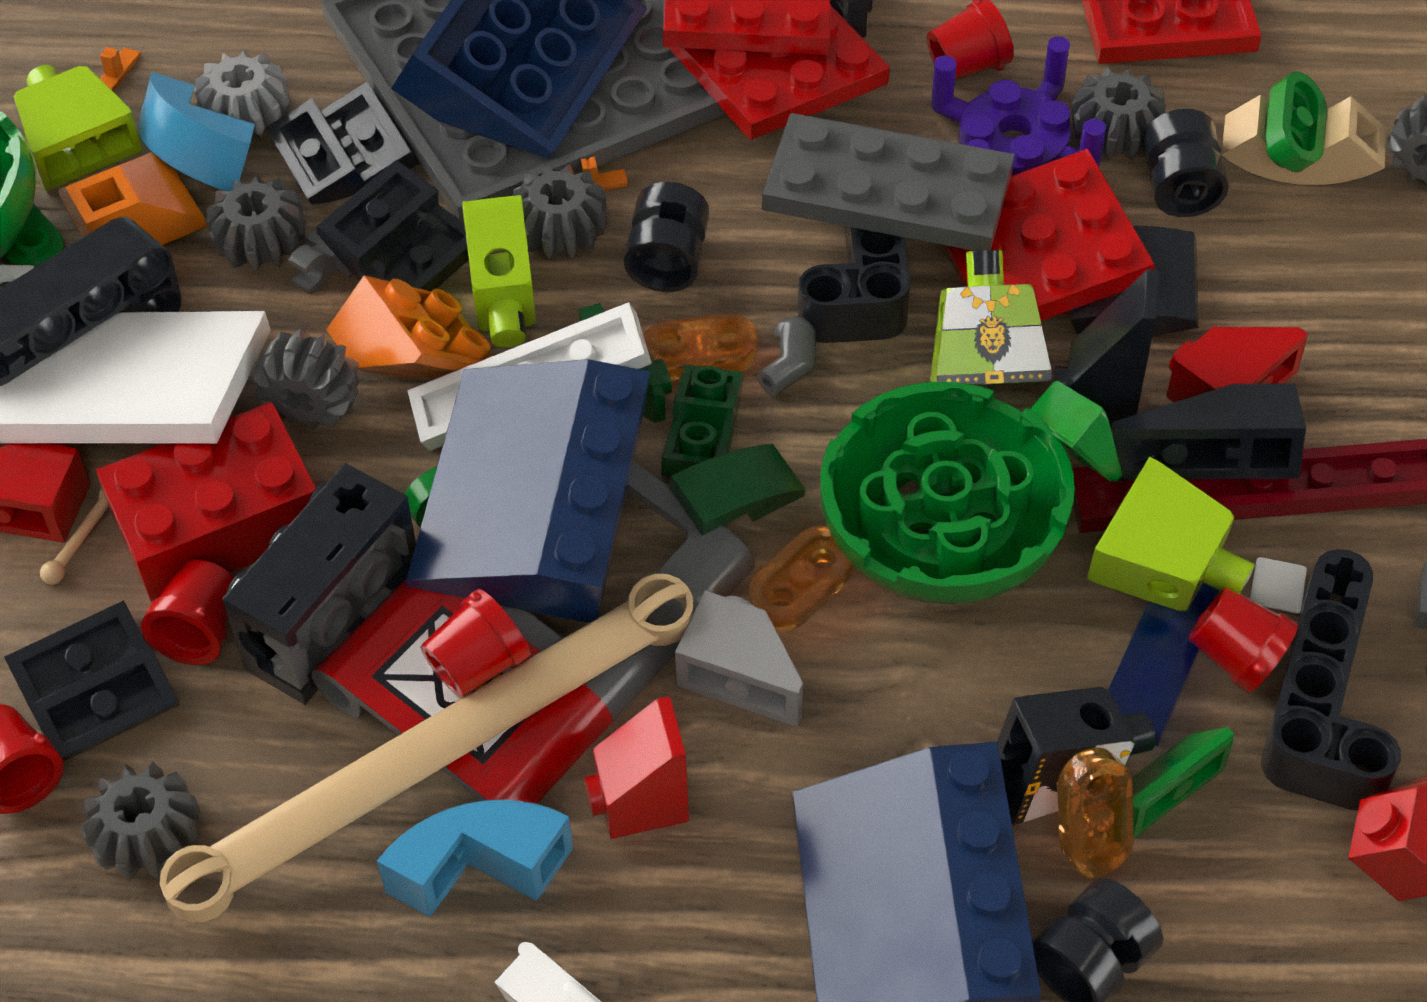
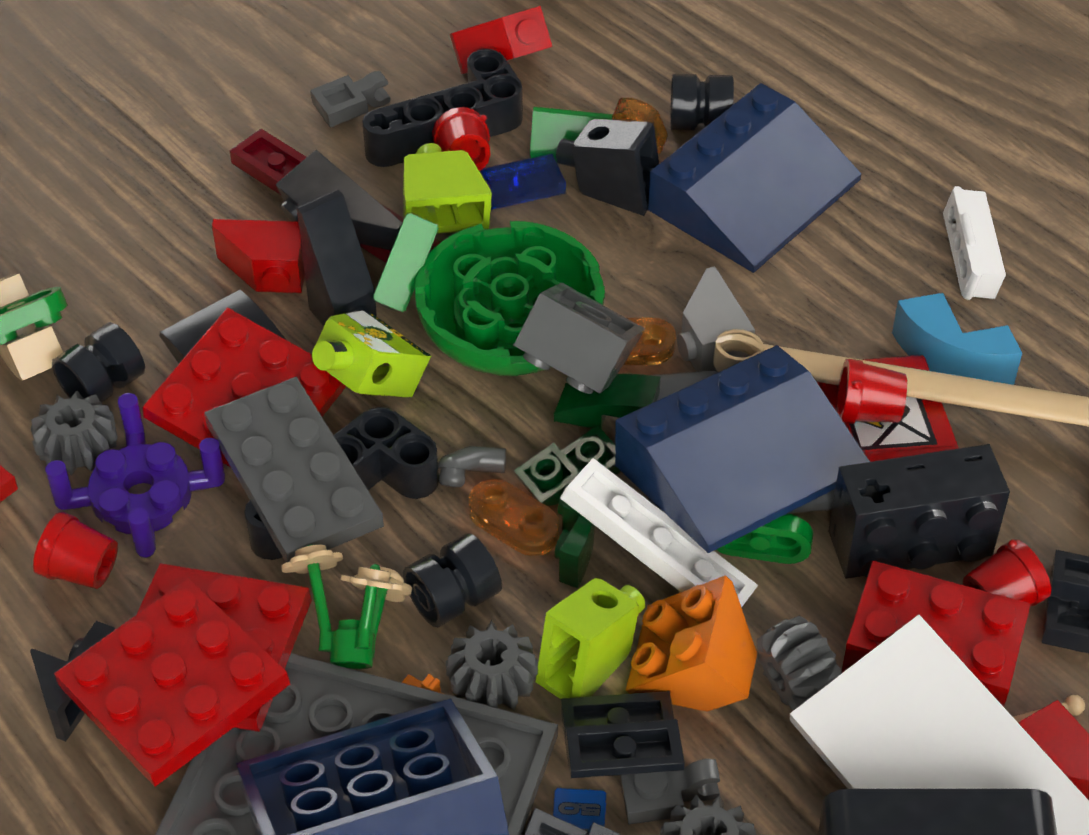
camera: 135 degrees left, 5 degrees down
(641, 774) = (834, 297): red slope -> none
(688, 129) = (354, 640): none -> green plant
(803, 460) = (577, 338): none -> dark grey slope
(1278, 585) = (388, 178): white sticker -> none

